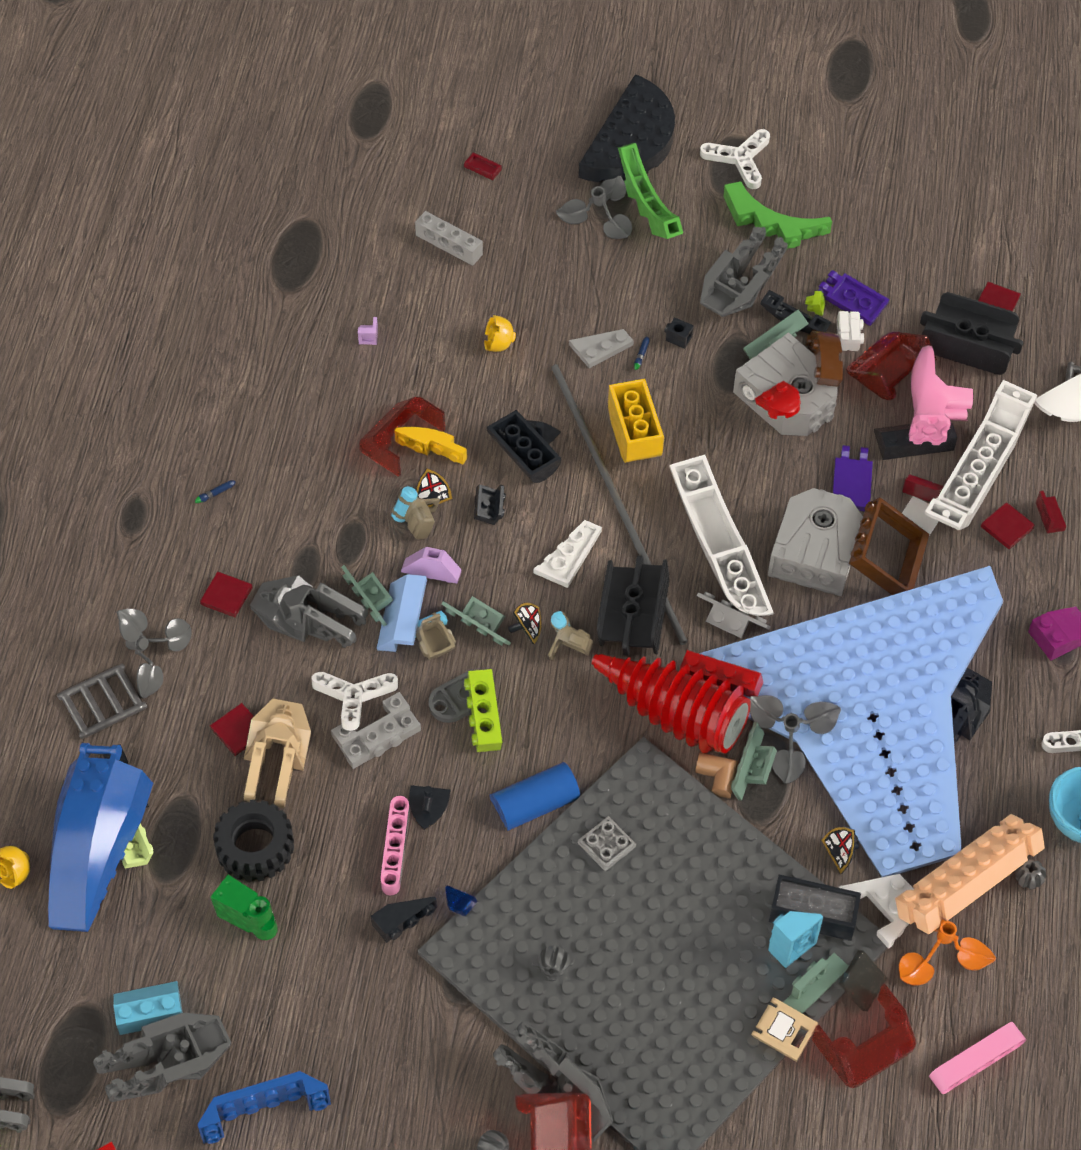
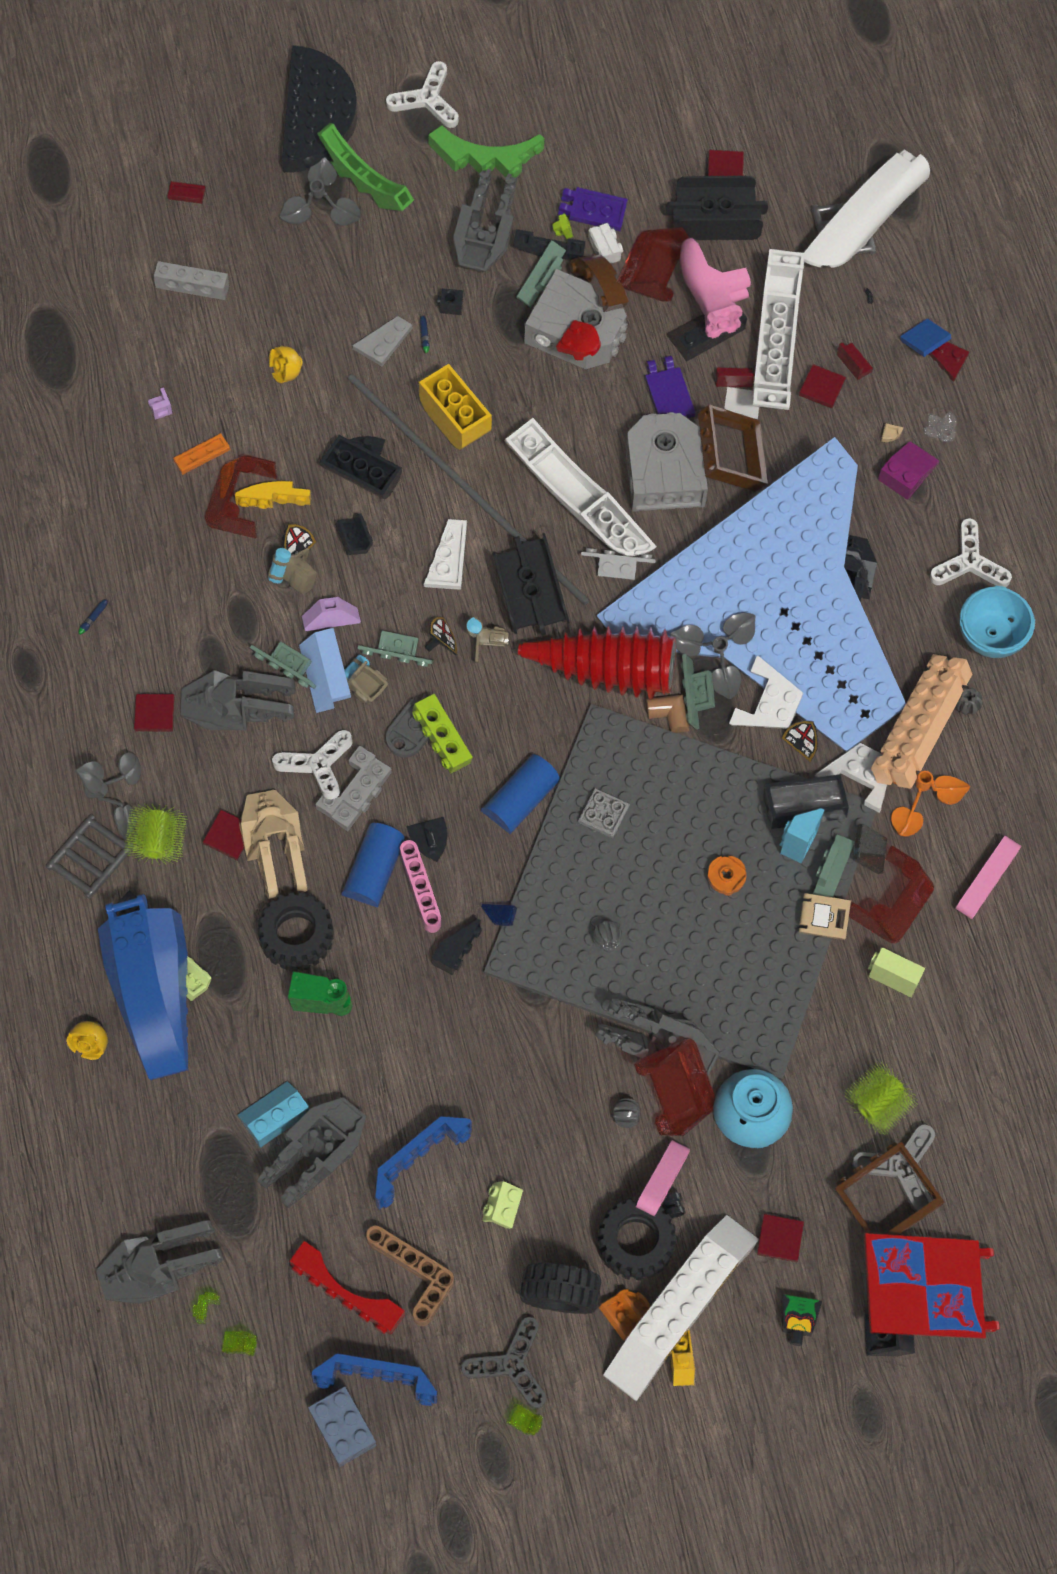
camera: 25 degrees left, 10 degrees up
(167, 700) = (155, 834): none -> lime piece
(360, 808) = (374, 864): none -> blue brick
(385, 386) = (201, 454): none -> orange tile
(708, 939) = (726, 885): none -> orange plate
(749, 679) = (643, 619): red brick -> none
(829, 803) = (777, 702): none -> white wing
(835, 1114) = (895, 971): none -> yellowish green brick
(1060, 592) = (891, 433): none -> tan tile

